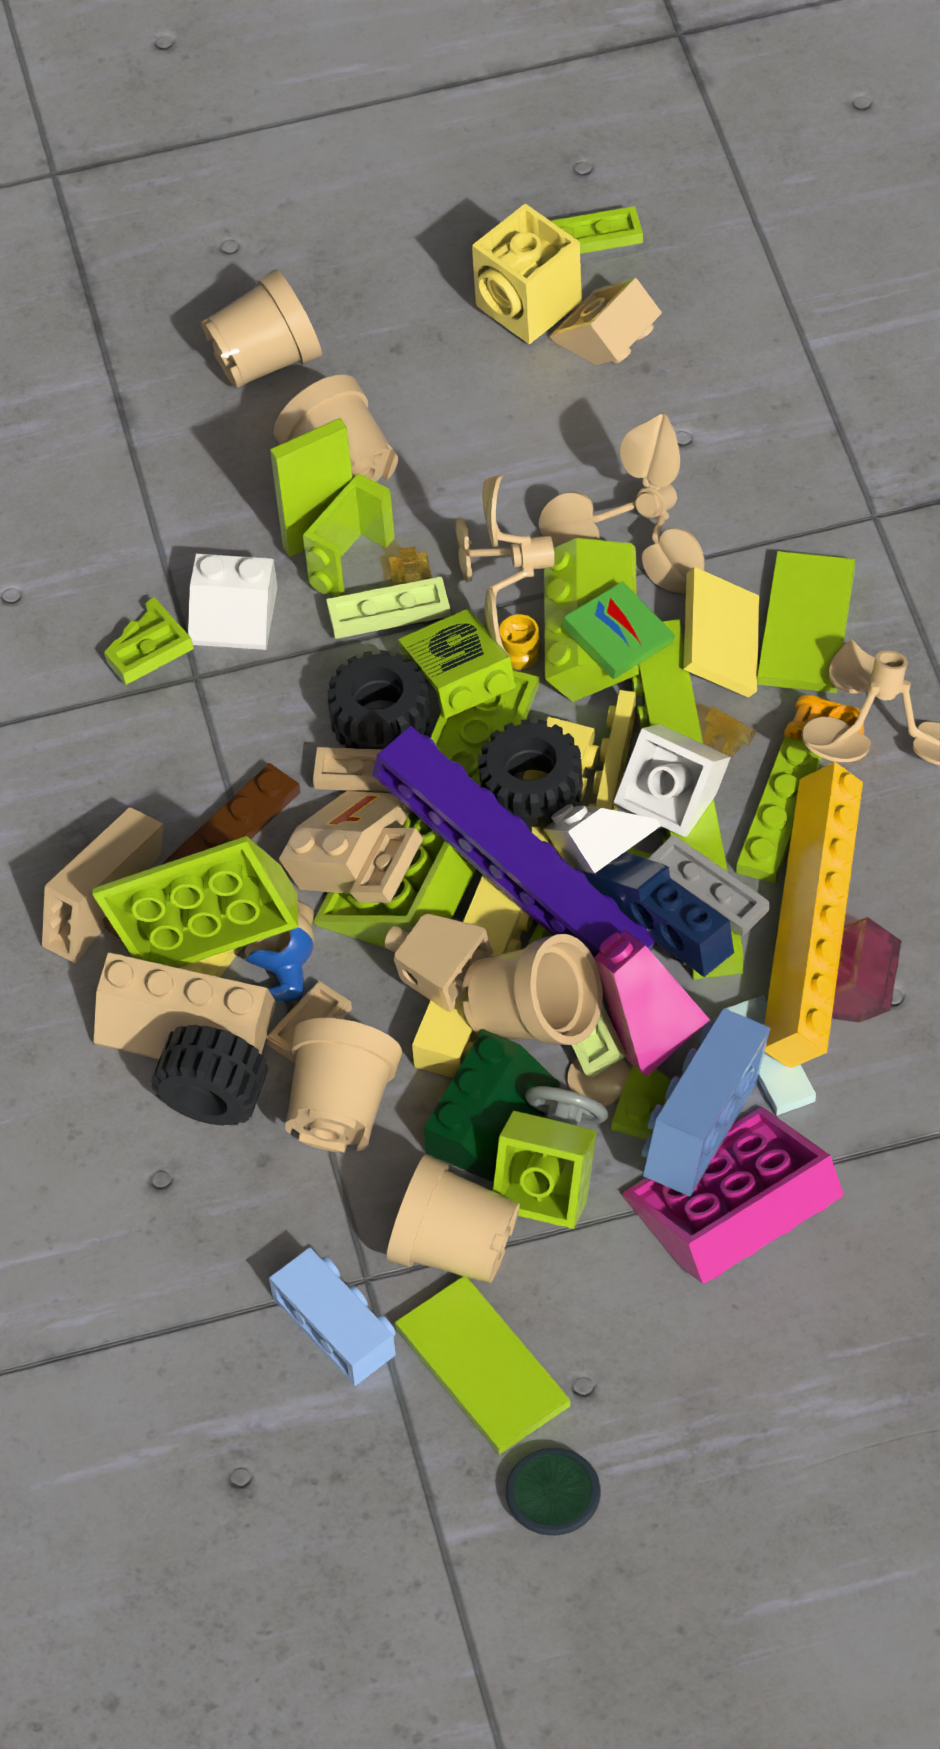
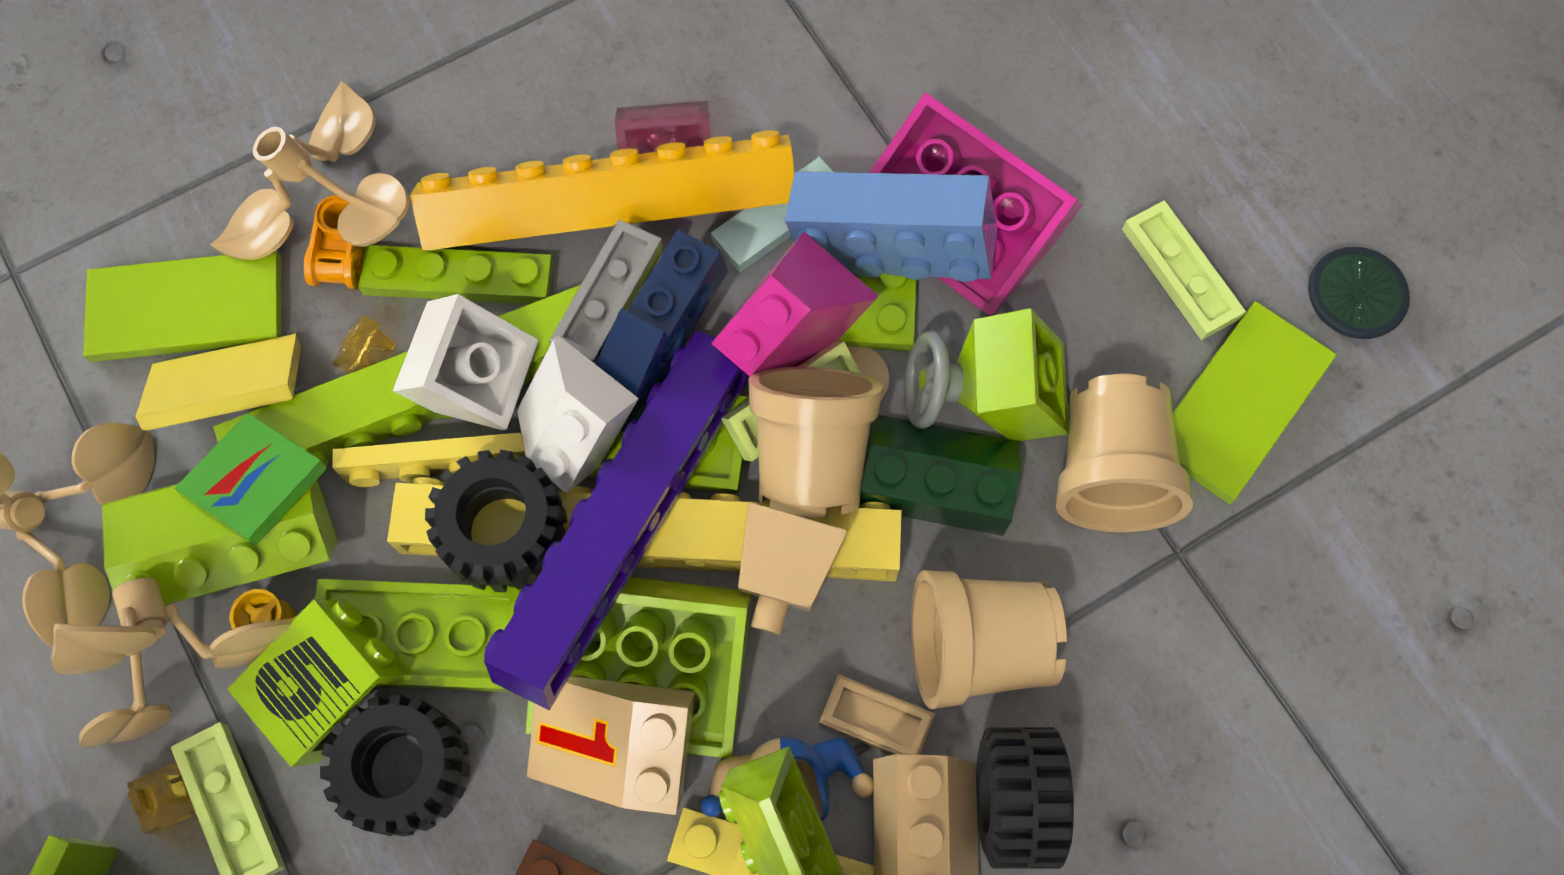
camera: 110 degrees left, 15 degrees up
(333, 1315) = (1255, 565): light blue brick -> none
(346, 770) = (497, 772): tan plate -> none
(386, 865) = (662, 666): tan plate -> none
(617, 1350) = (1183, 270): none -> yellowish green plate

